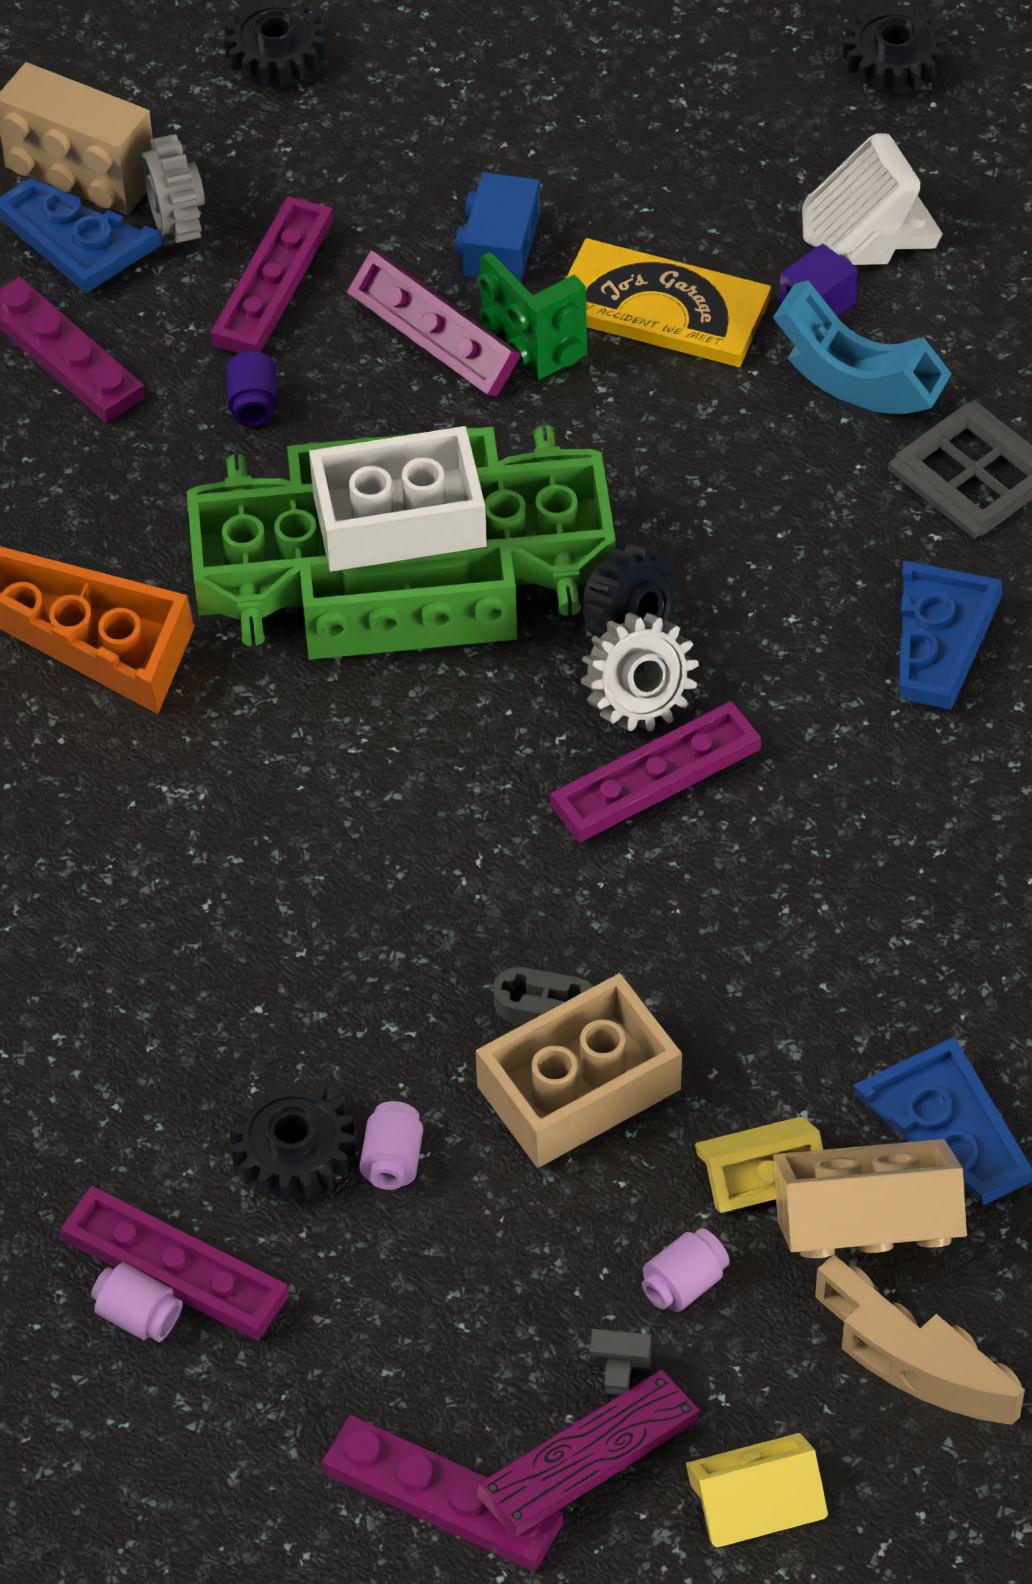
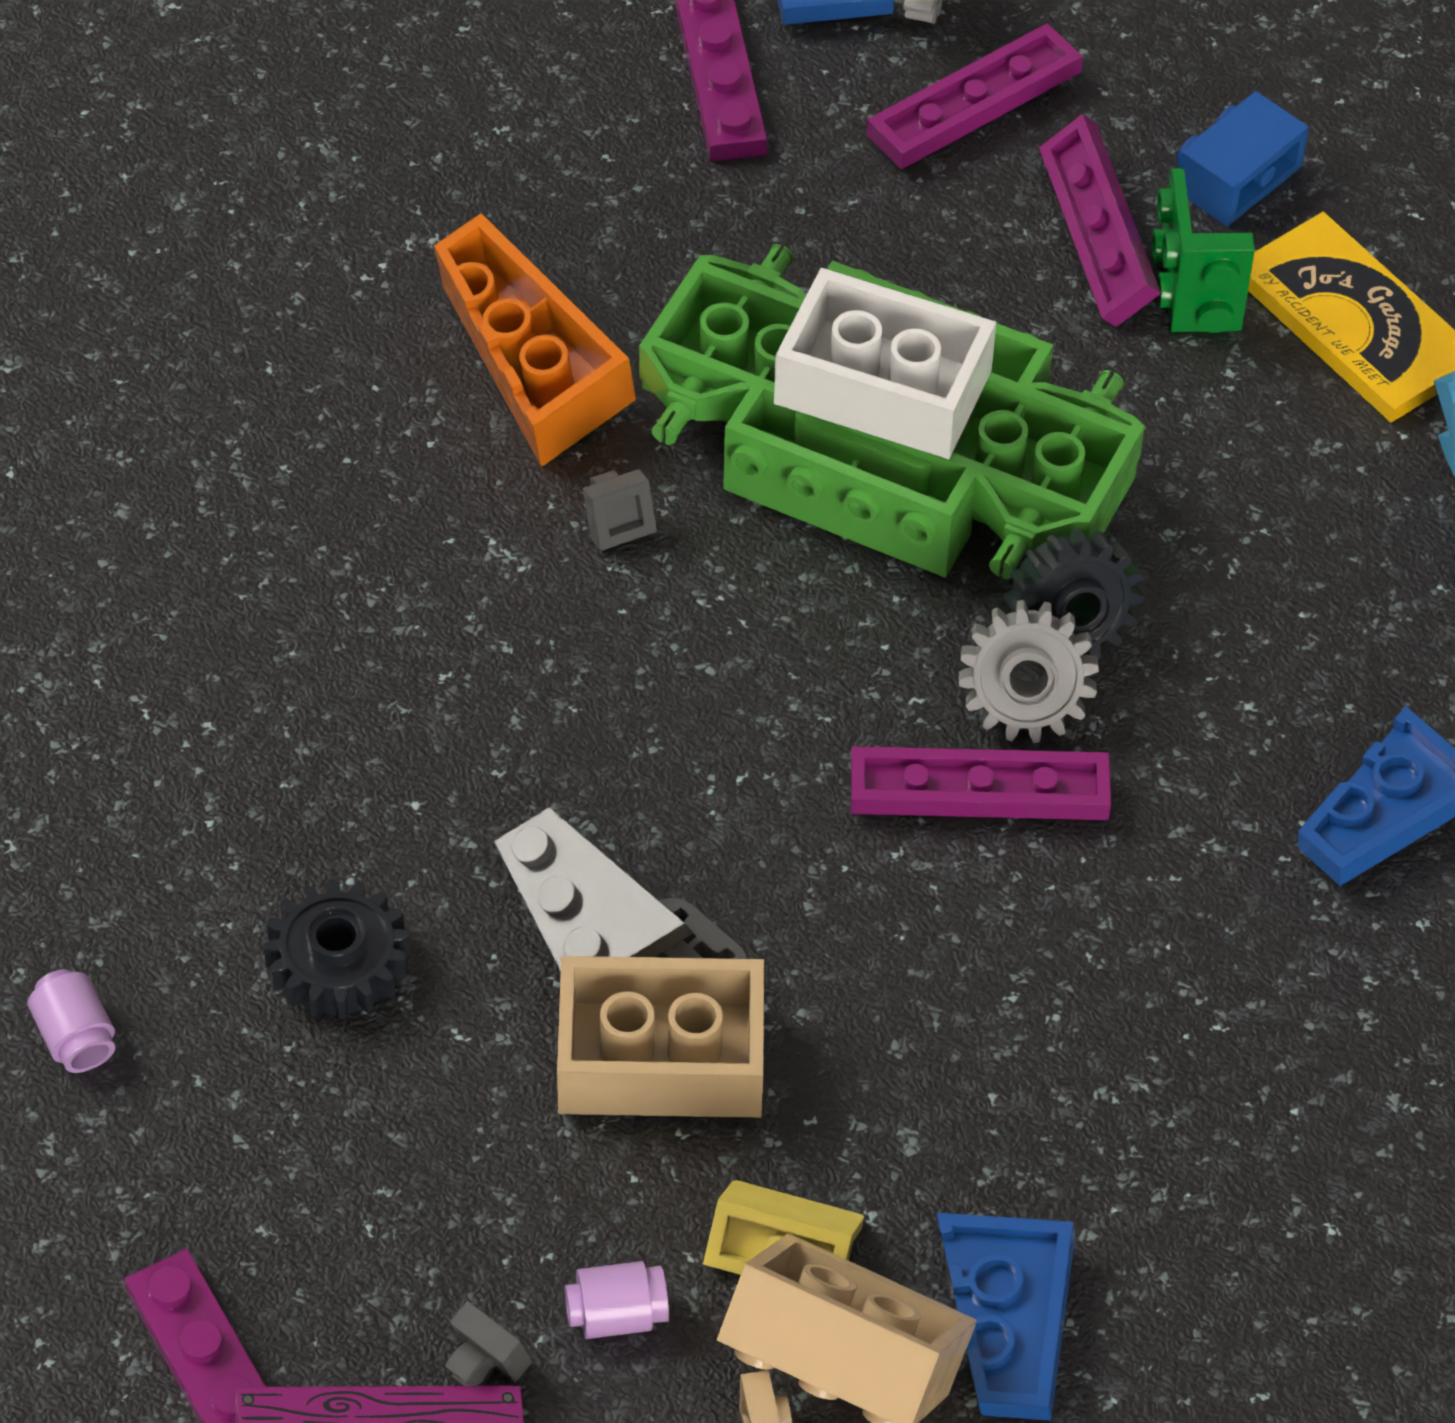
camera: 30 degrees right, 0 degrees up
(192, 1268) = (139, 1004): magenta plate -> none
(248, 711) = (619, 508): none -> dark grey tile
(252, 388) = (868, 194): dark purple brick -> none
(391, 1145) = (428, 1008): lavender brick -> none
(442, 1005) = (582, 896): none -> wing

